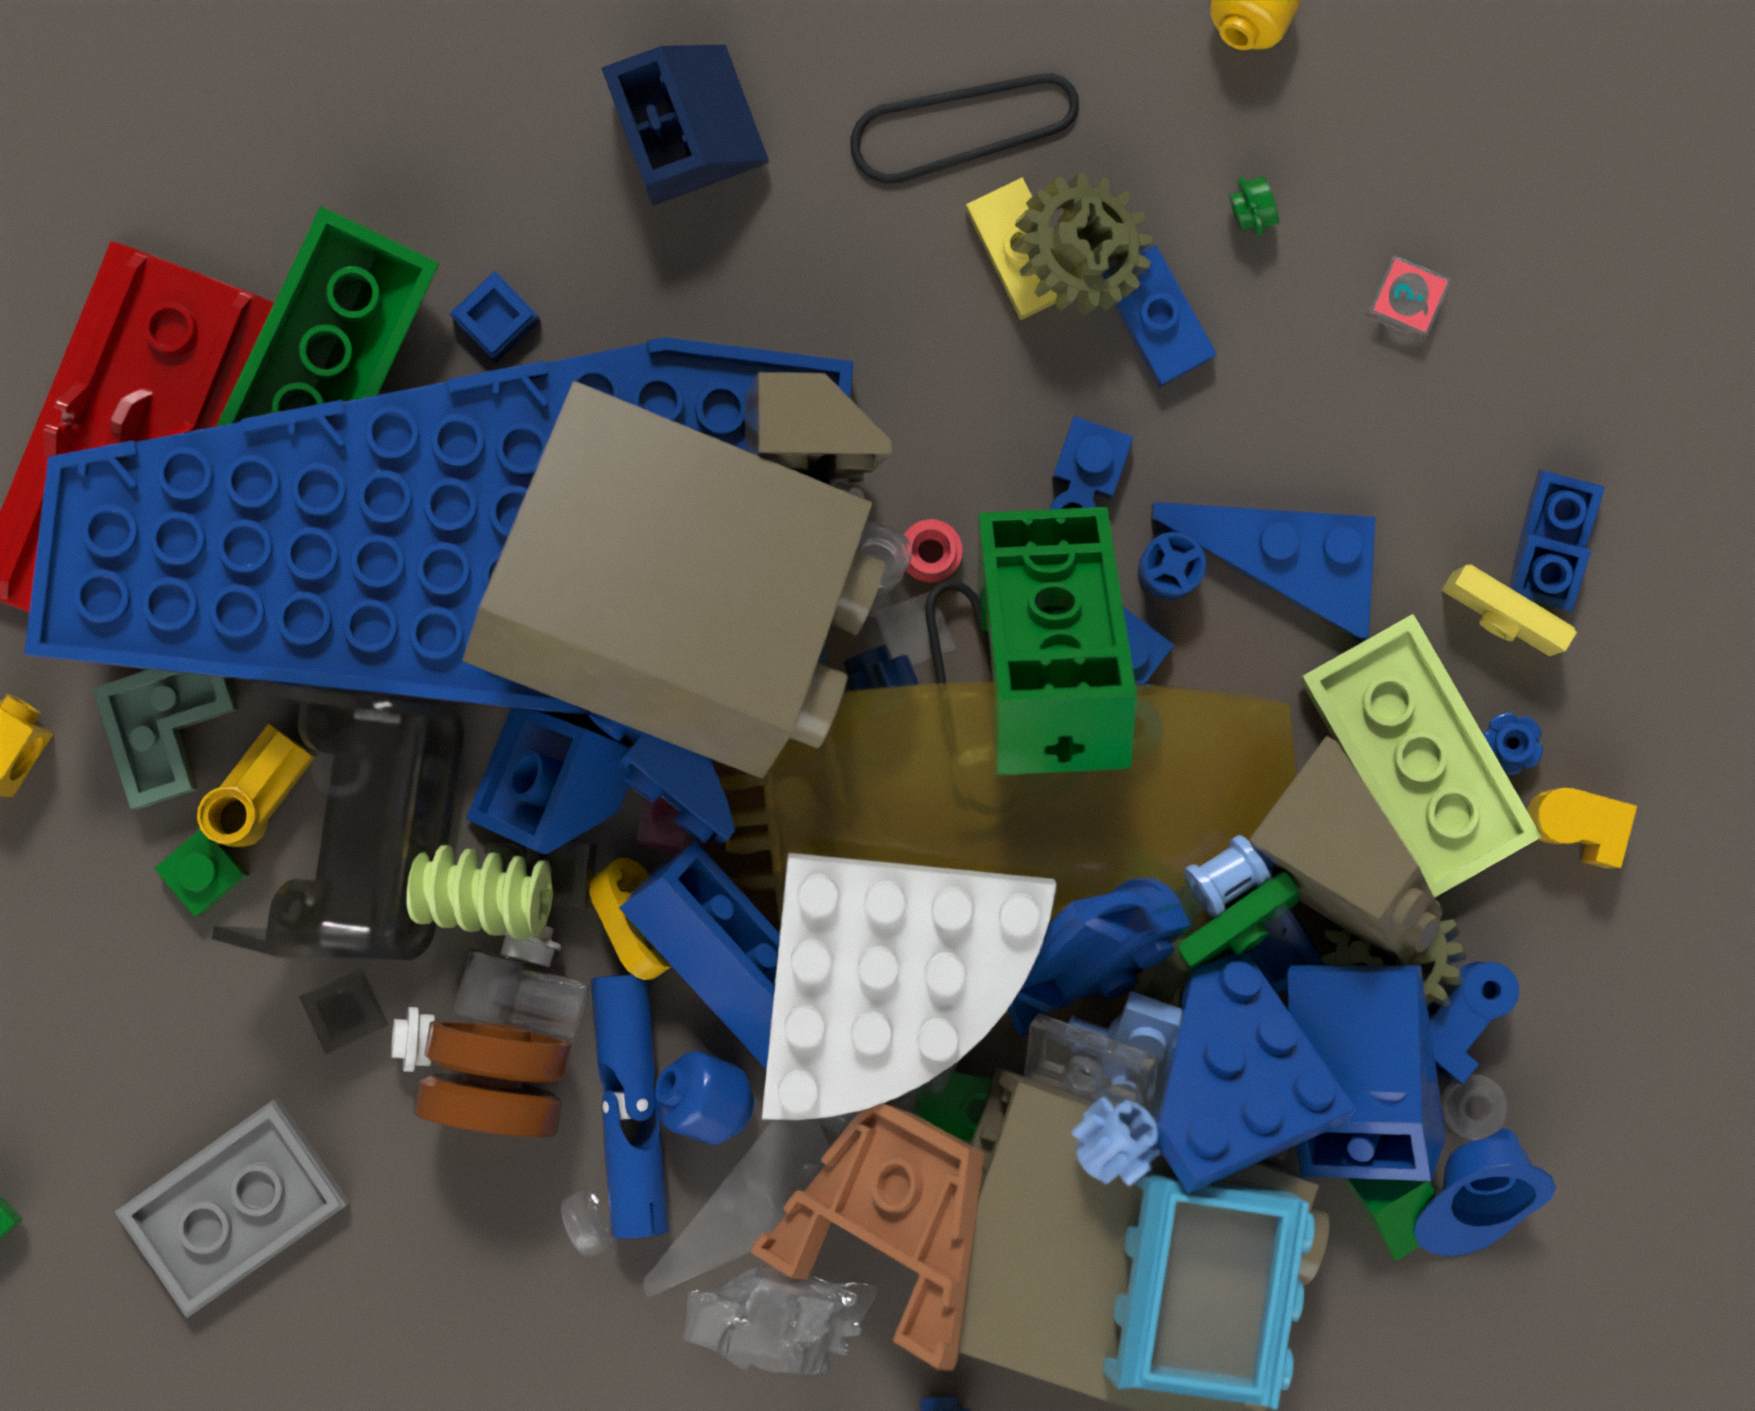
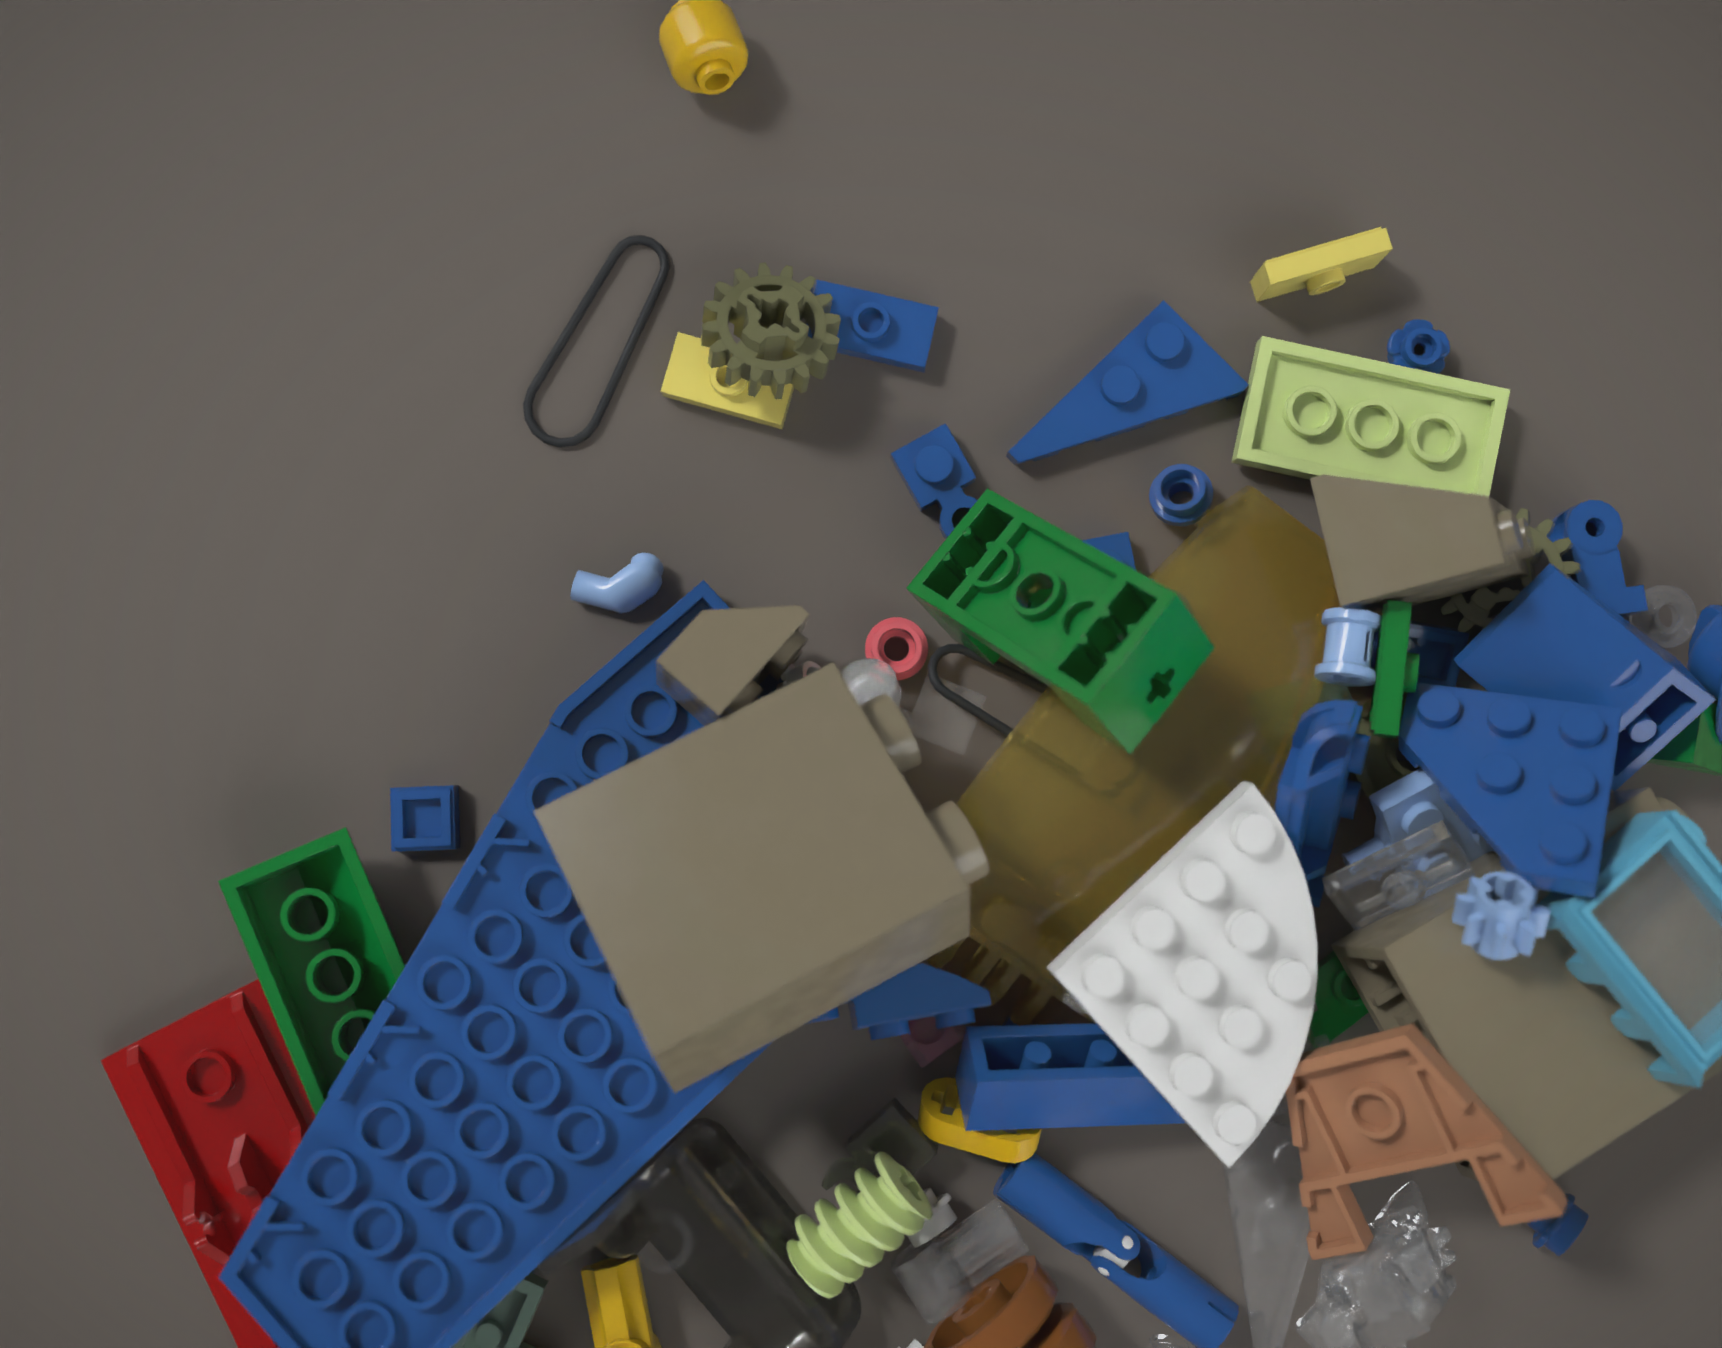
camera: 50 degrees left, 0 degrees up
(548, 781) = (818, 1095): blue slope -> none
(684, 118) = (404, 542): dark blue slope -> none
(704, 1098) = (1162, 1189): blue head -> none
(793, 310) = (623, 590): none -> light blue arm
(878, 669) = (956, 769): dark blue gear -> none
(1182, 560) = (1071, 468): blue wheel -> none
(1243, 645) = (1176, 479): none -> blue plate
(1254, 205) = (853, 181): green plate -> none
(1408, 297) = (1021, 132): tile -> none
(1555, 539) = (1293, 188): blue slope -> none
(1584, 818) = (1532, 344): yellow leg -> none

